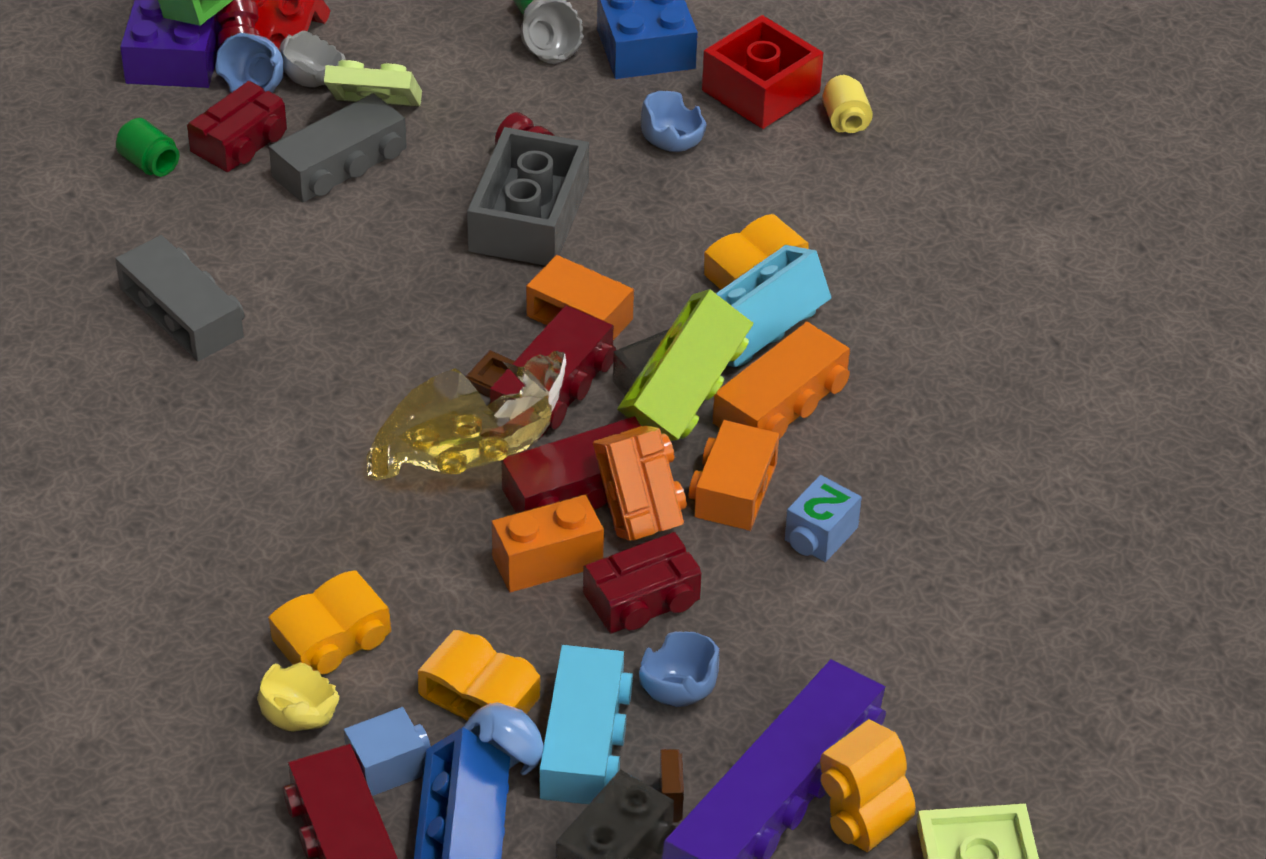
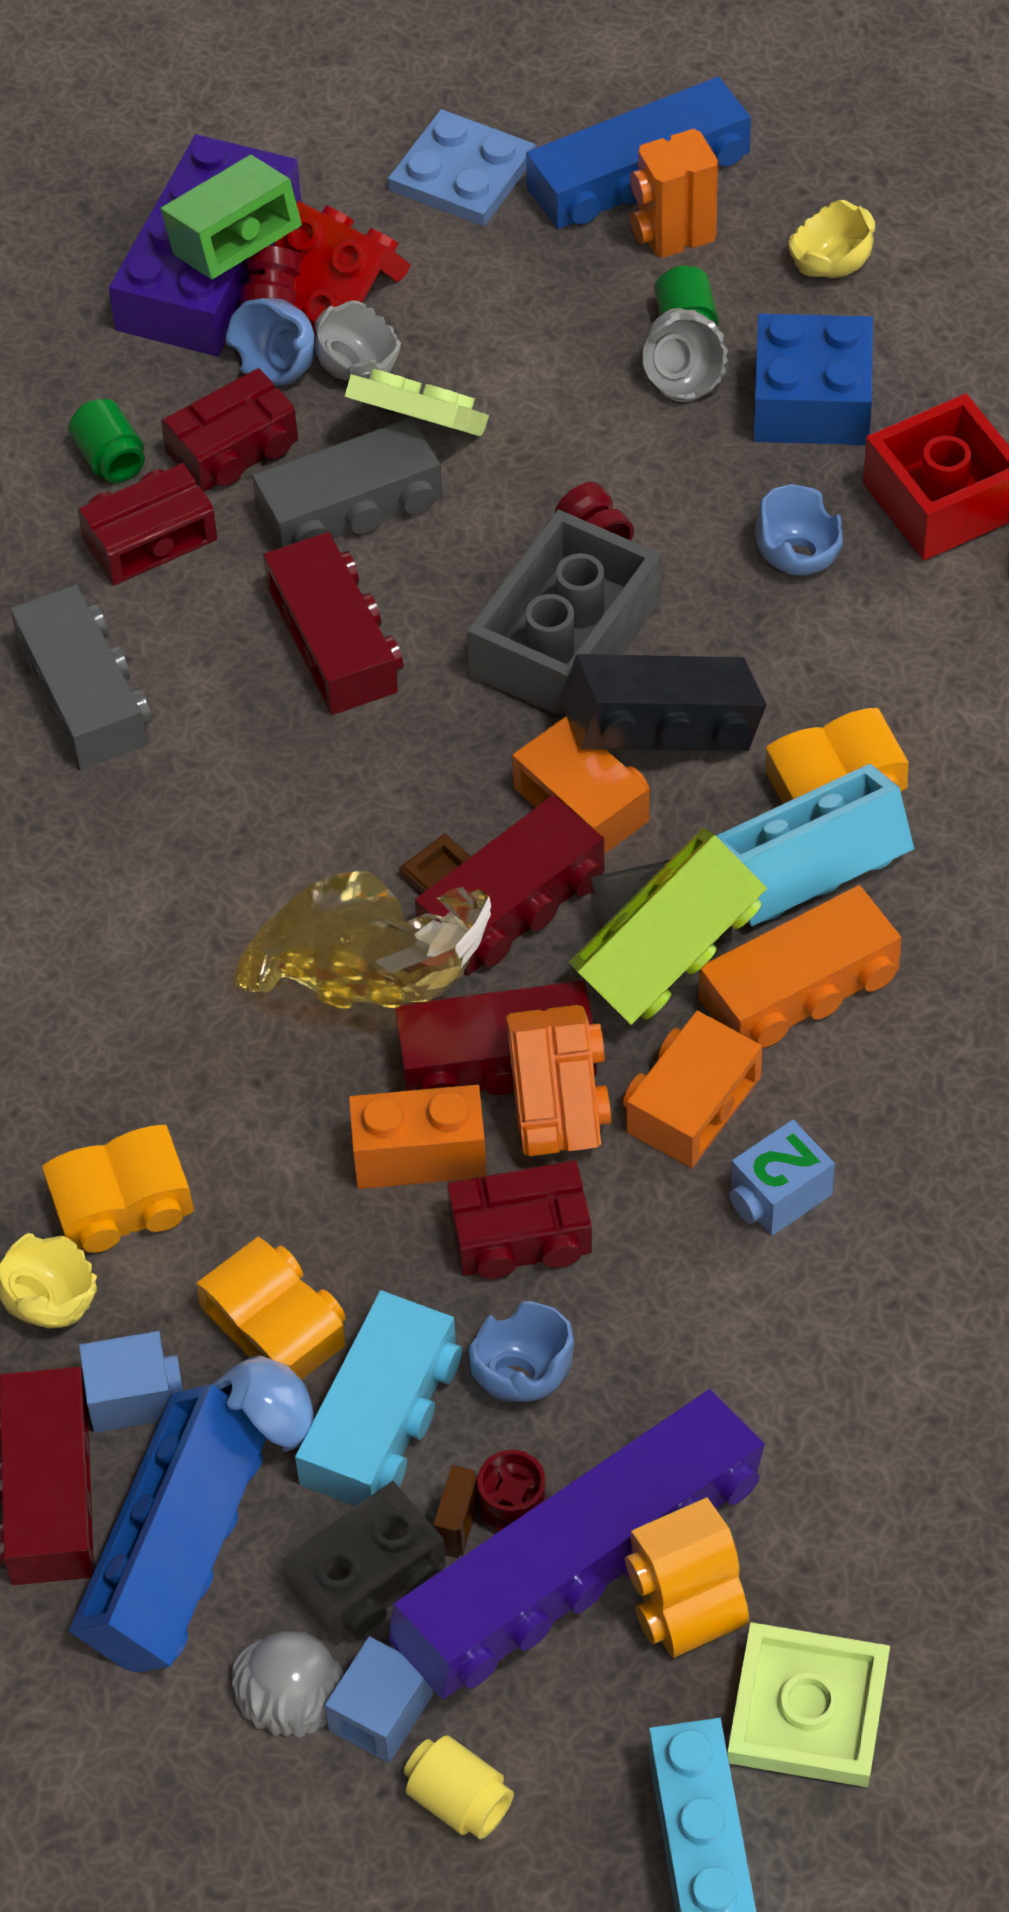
camera: 20 degrees right, 10 degrees up
(196, 193) = (147, 523): none -> dark red brick
(357, 232) = (333, 622): none -> dark red brick
(622, 235) = (662, 702): none -> black brick
(706, 759) = (509, 1479): none -> dark red wheel

